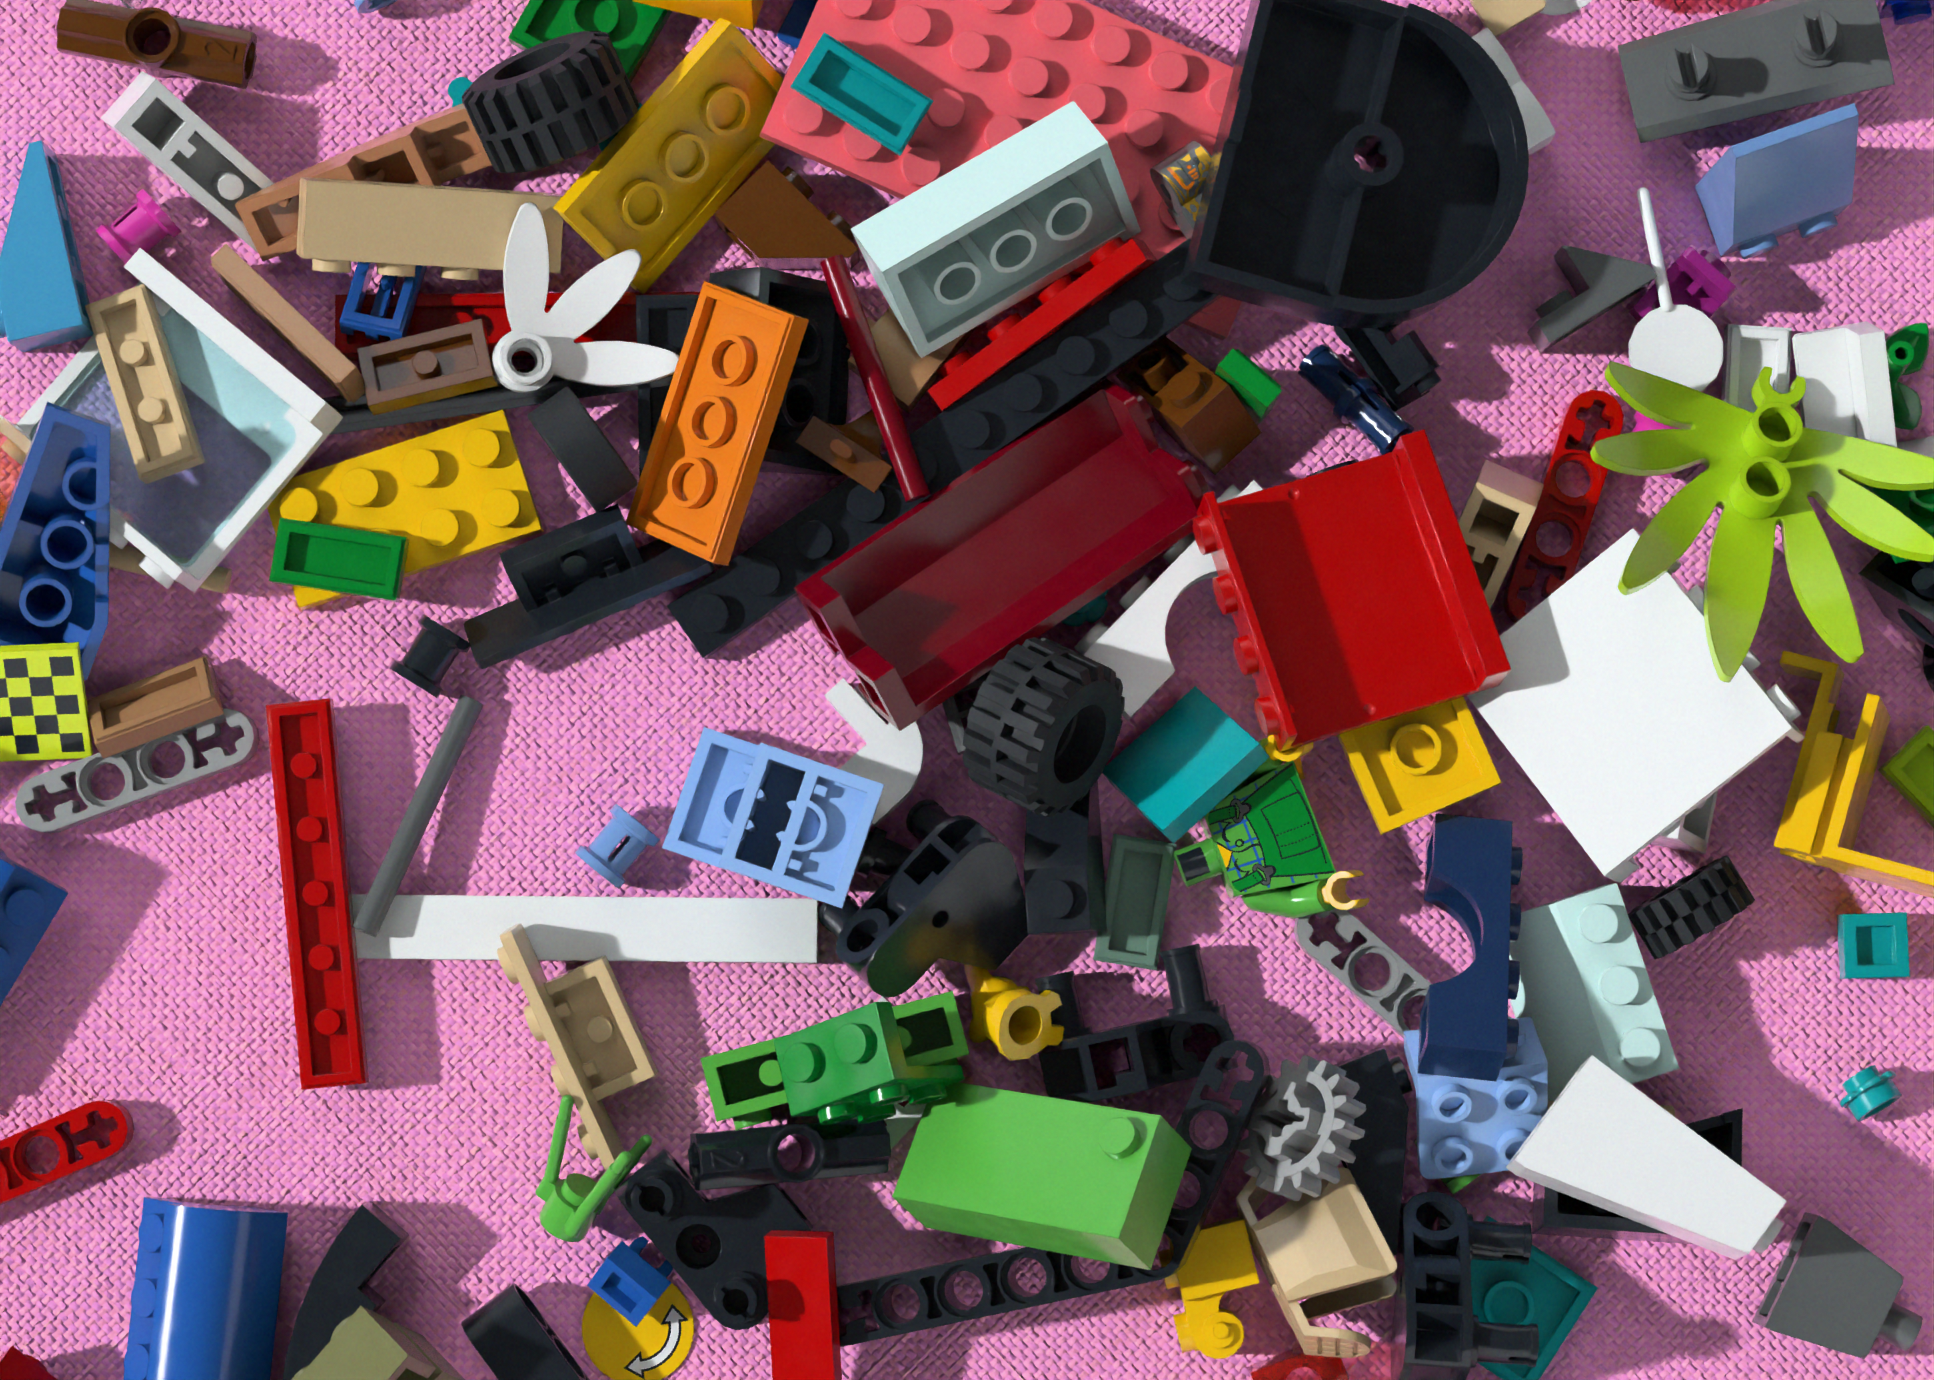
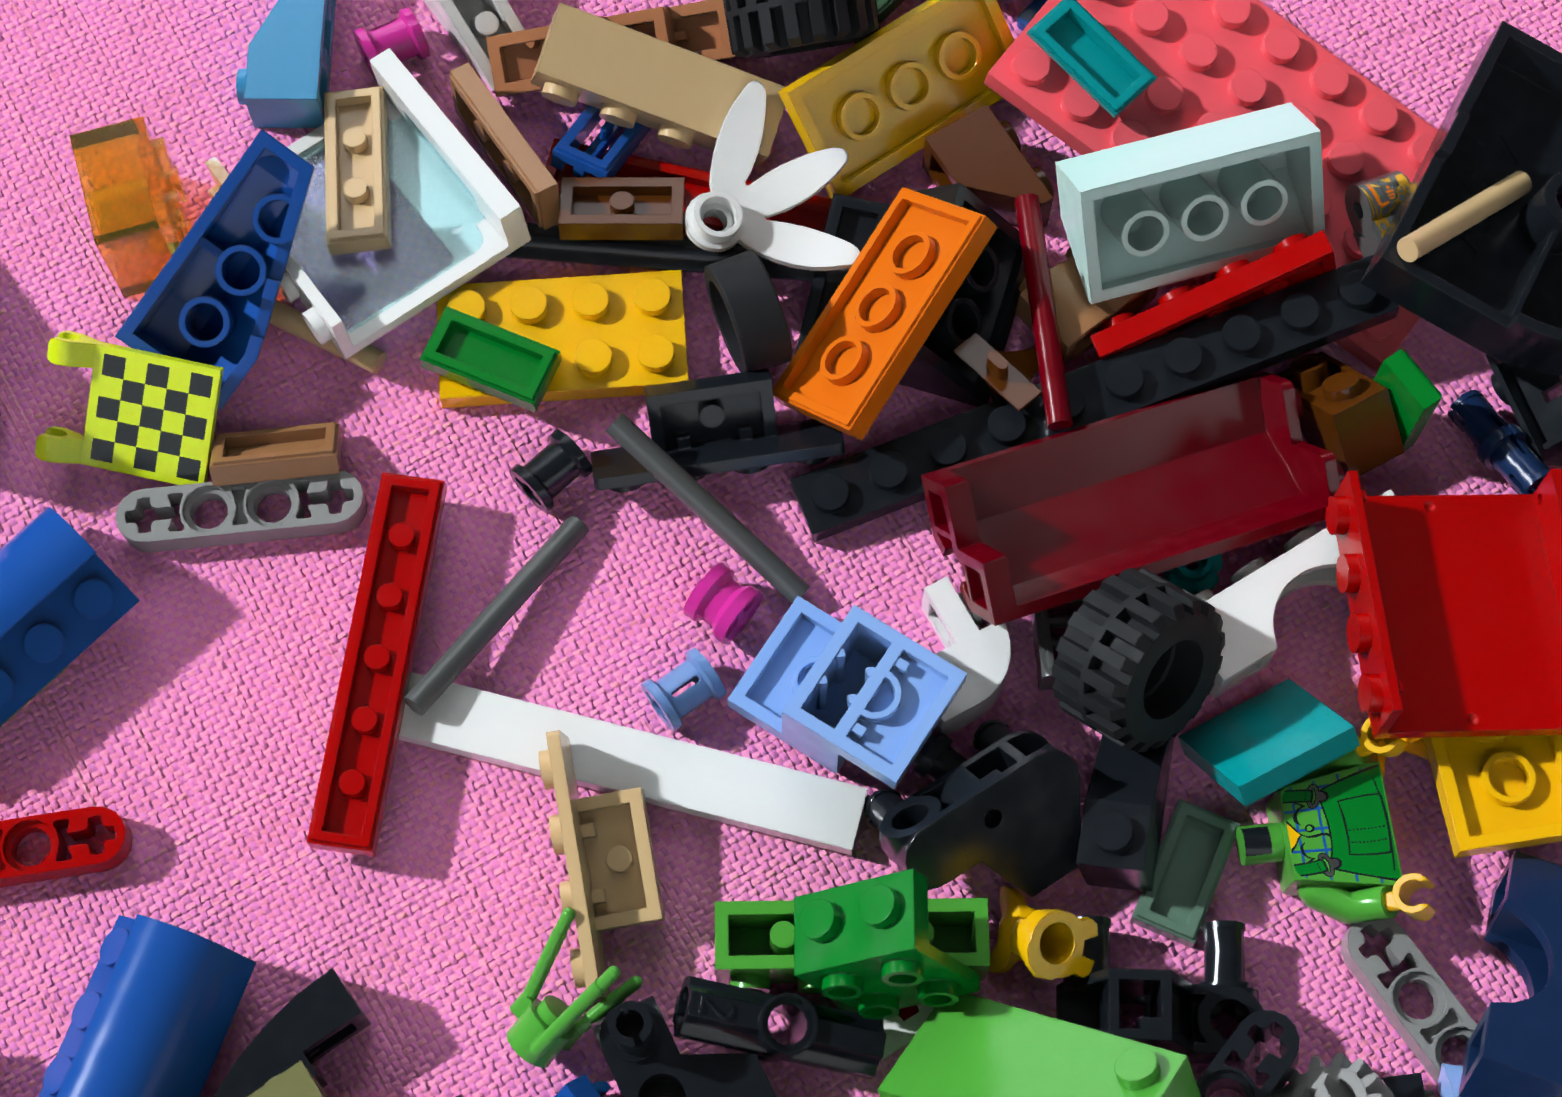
camera: 15 degrees right, 15 degrees down
(594, 662) = (707, 508): none -> dark grey bar
(633, 751) = (723, 603): none -> dark pink wheel
(1268, 196) = (1464, 216): none -> tan bar

